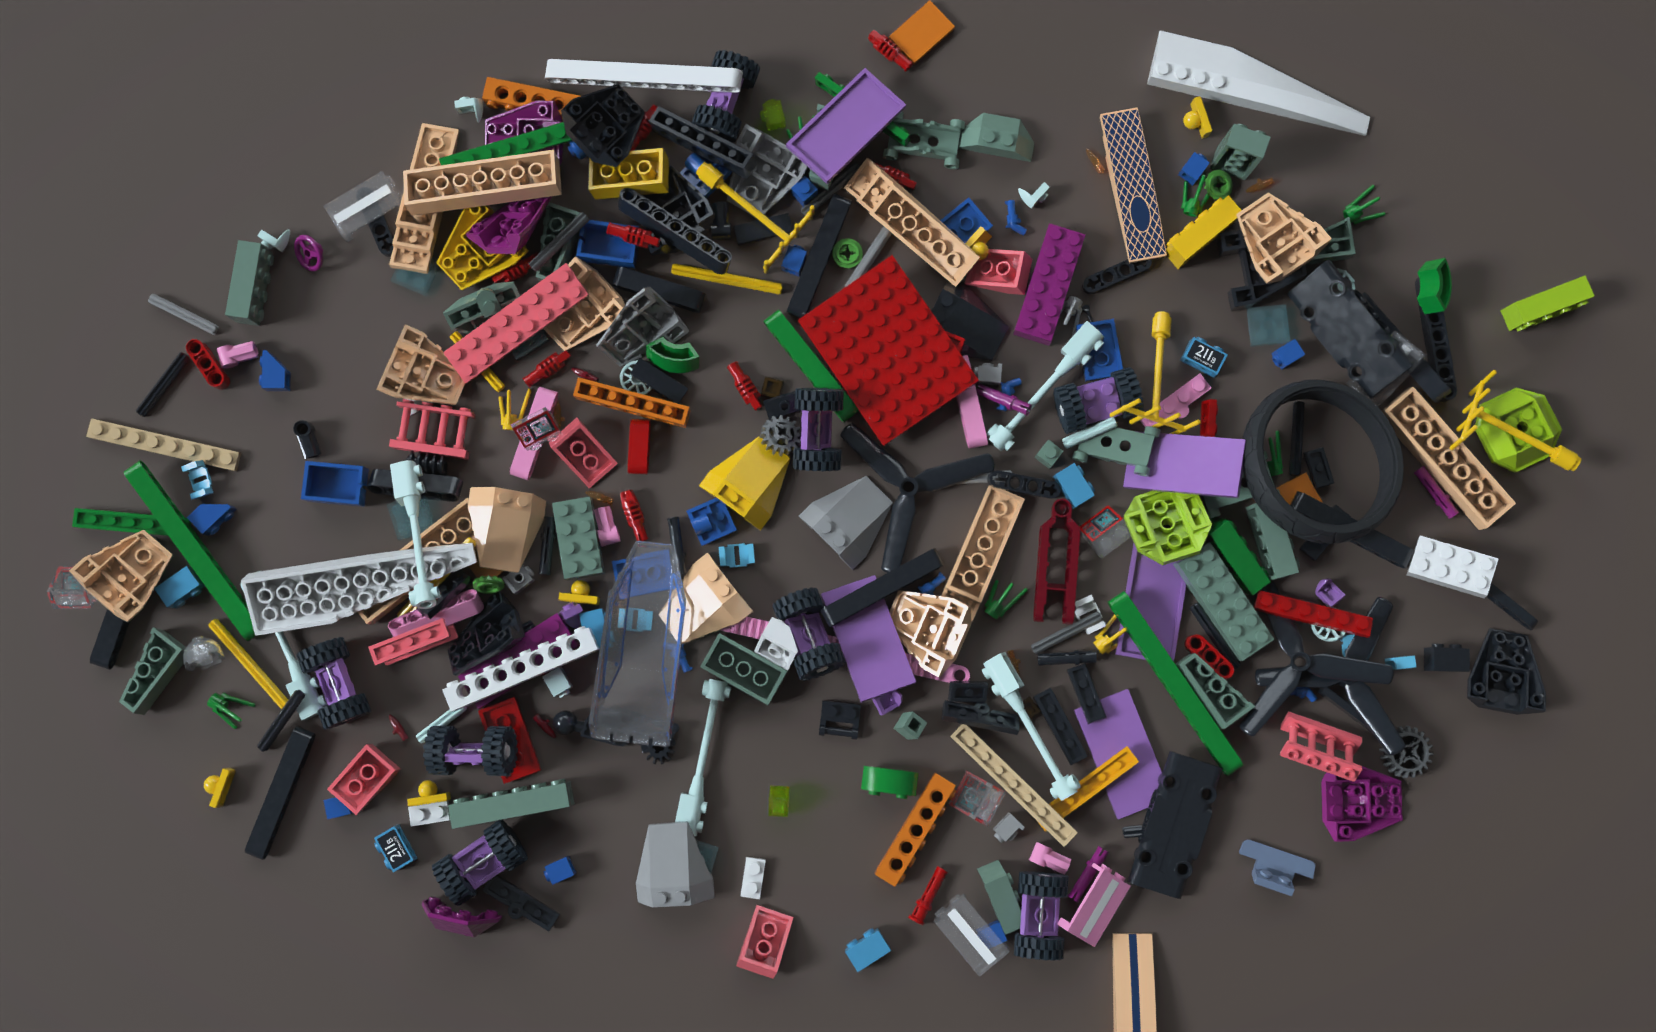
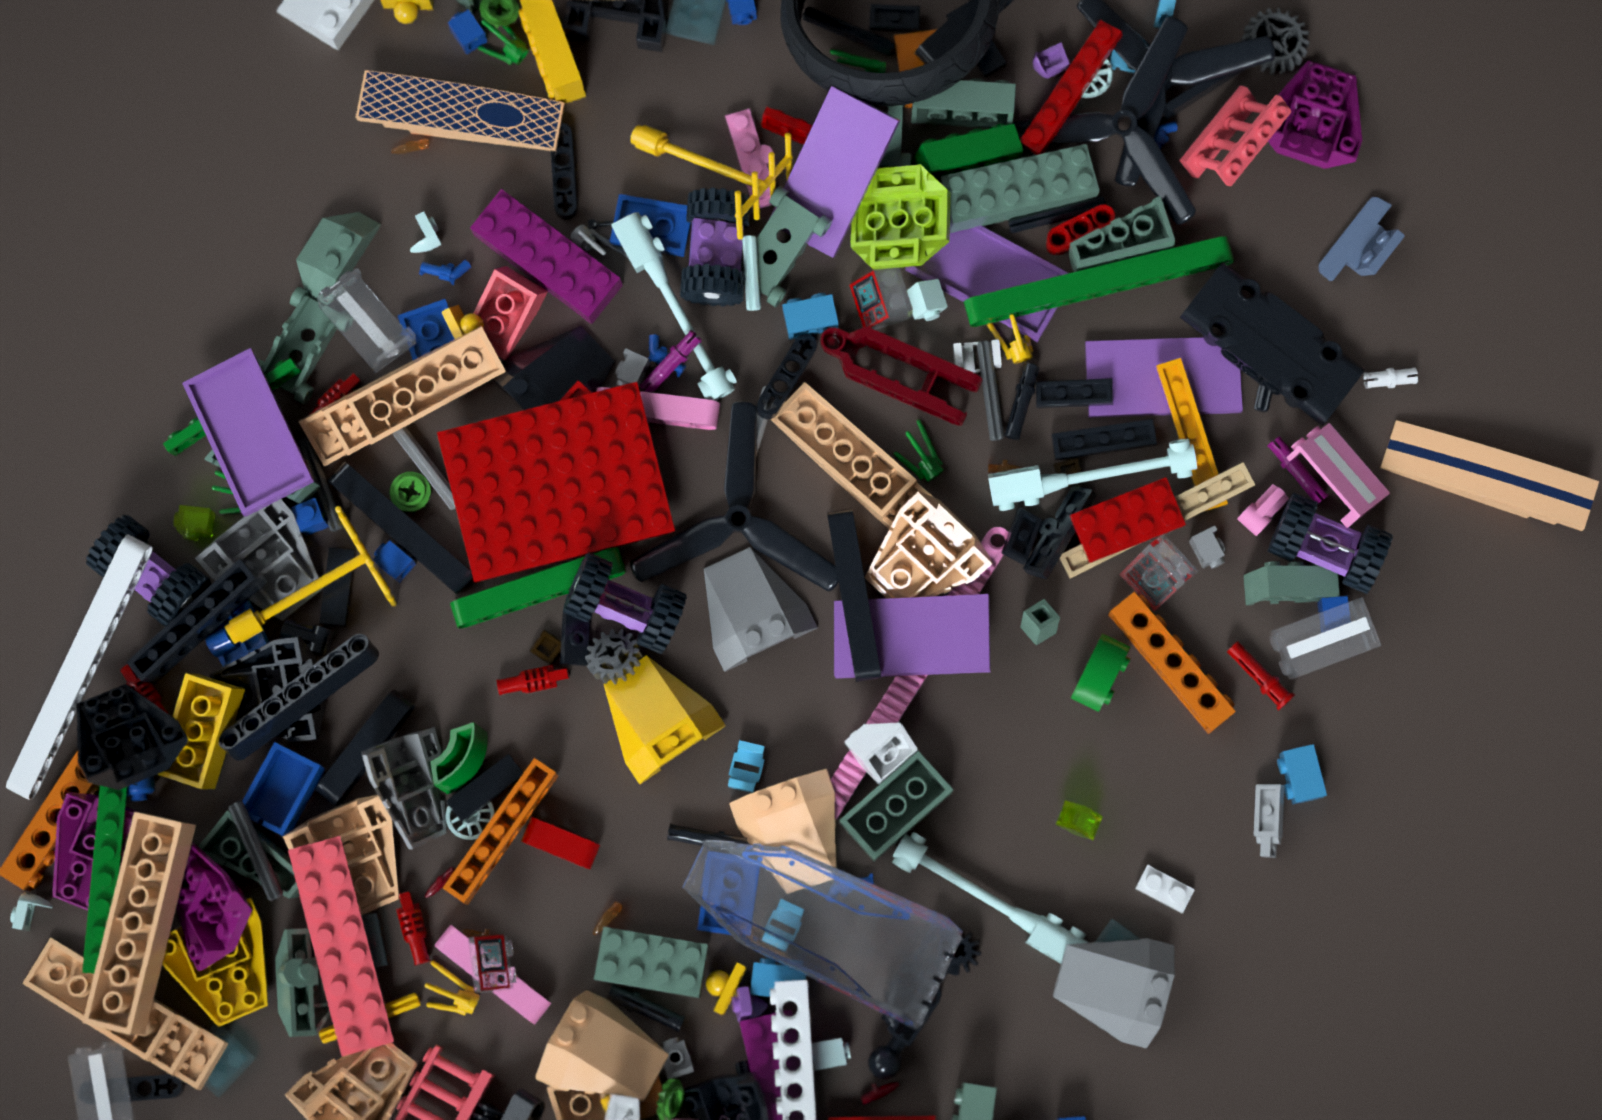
camera: 65 degrees left, 5 degrees down
(514, 272) = (270, 924): red hinge -> none
(583, 453) = (542, 918): coral slope -> none
(608, 531) = (655, 921): bright pink piece -> none
(633, 235) = (285, 750): red hinge -> none
(633, 514) = (646, 880): red hinge -> none
(711, 521) = (691, 783): blue plate -> none
(729, 279) = (385, 655): yellow axle -> none
(765, 942) = (1251, 901): coral slope -> none
(815, 652) = (910, 704): black plate -> none
(828, 935) = (1268, 818): none -> light grey hinge
(840, 713) = (993, 707): black plate -> none
(888, 702) = (1001, 640): medium lavender plate -> none
(889, 50) = (168, 347): red hinge -> none
(922, 32) = (161, 300): orange tile -> none
(928, 588) = (873, 538): blue piece -> none
(956, 176) = (365, 320): none -> clear panel
(1005, 763) = (1127, 520): none -> red plate
(1048, 454) = (759, 332): sand green brick -> none
(1116, 564) = (927, 299): none -> light aqua brick
(1181, 919) = (1390, 378): none -> white pin
(1203, 356) = (707, 103): brick -> none

